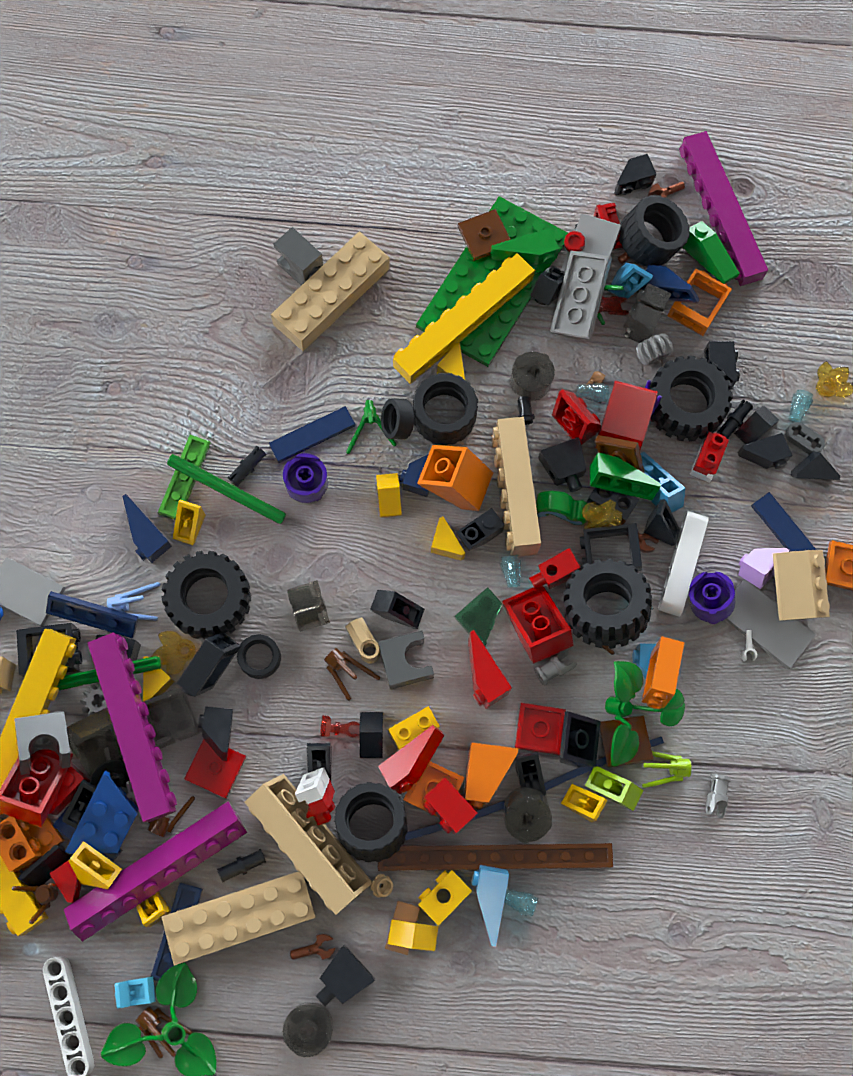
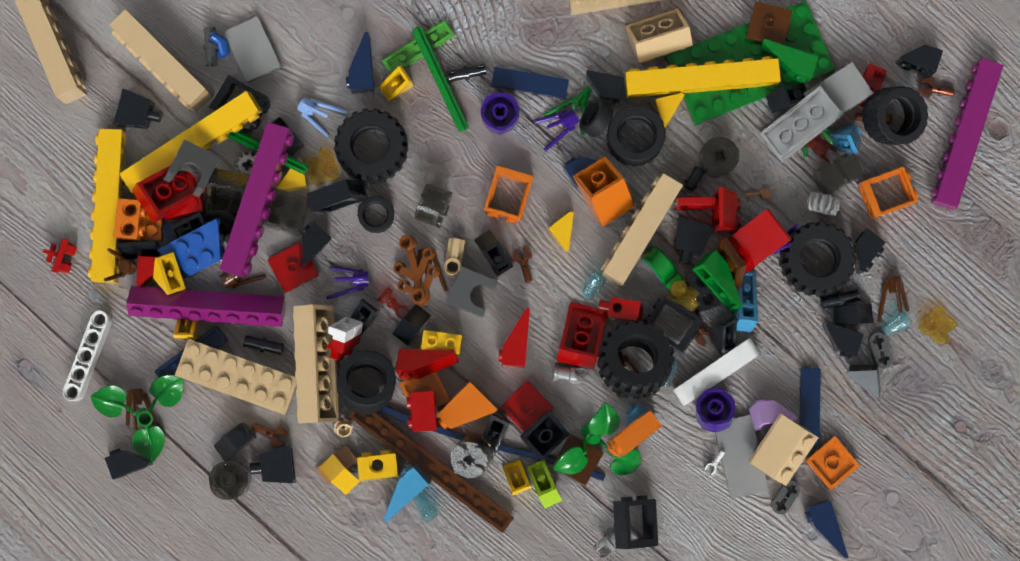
camera: 40 degrees right, 10 degrees up
(91, 614) = (285, 101): dark blue tile -> none
(134, 992) = (139, 373): medium azure bracket -> none
(283, 985) = (234, 441): none -> black slope
(287, 728) = (359, 278): none -> dark purple plant
(339, 679) = (420, 293): none -> dark orange plant
(363, 525) = (513, 176): none -> orange window
(370, 442) = (566, 119): none -> dark purple plant
(382, 386) = (606, 86): none -> black slope
(389, 495) = (550, 167): yellow slope -> none
(396, 311) = (659, 35): none -> tan slope
(432, 598) = (524, 263): none -> copper bar
(480, 614) = (546, 300): clear green wing -> none
(481, 530) = (592, 241): black slope -> none
(545, 428) = (695, 203): none -> red plate
(574, 241) = (829, 80): red tile -> none
(594, 392) = (753, 202): clear light blue cone -> none
(672, 283) = (870, 160): dark blue slope -> none
(677, 767) = (599, 504): lime plant -> none
(709, 456) = (797, 311): red hips -> none
(710, 253) = (925, 162): green slope -> none
(718, 766) = (622, 523): none -> black window
(770, 375) = (894, 285): none -> reddish brown plant
(840, 629) = (789, 499): none -> dark grey beam

